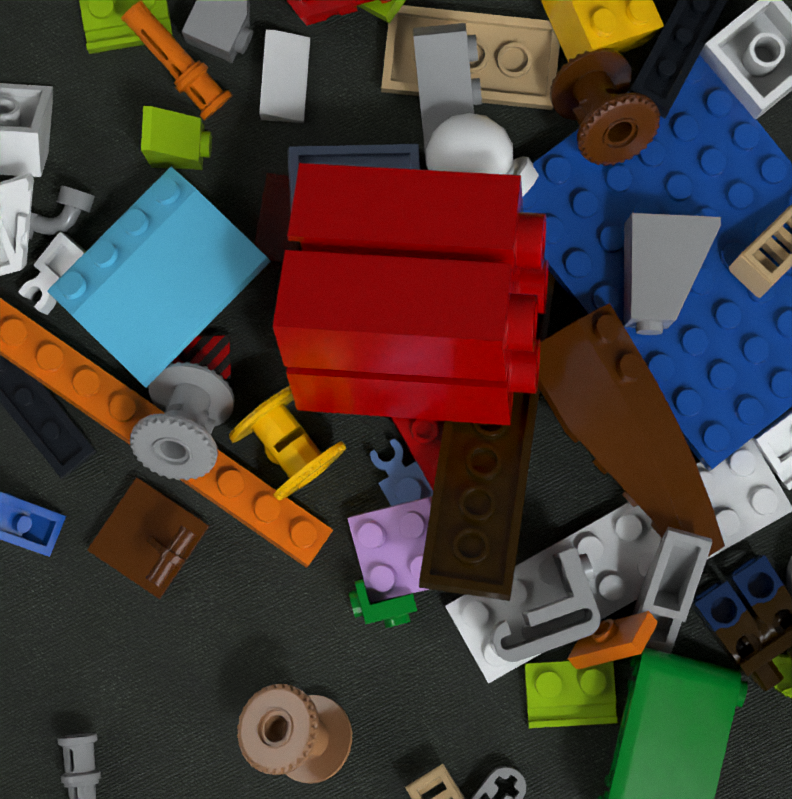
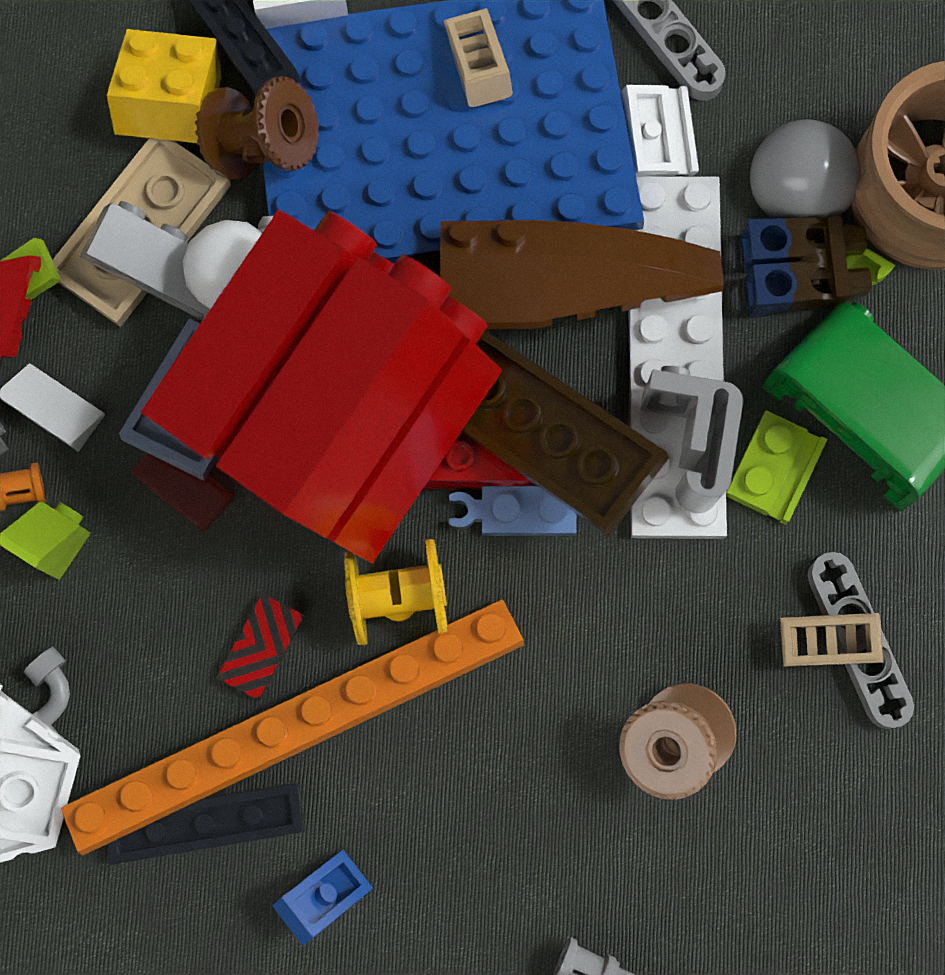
camera: 60 degrees left, 5 degrees down
(52, 265) = (102, 716): white plate -> none
(148, 538) = (410, 780): reddish brown plate -> none
(158, 276) = (166, 625): medium azure slope -> none
(181, 439) = (332, 687): light grey hose -> none
(391, 547) = (553, 548): lavender plate -> none
(392, 611) = (610, 587): green bracket -> none
(614, 640) = (758, 382): orange plate -> none
(661, 266) = (434, 157): light grey slope -> none
(672, 584) = (733, 318): light grey slope -> none

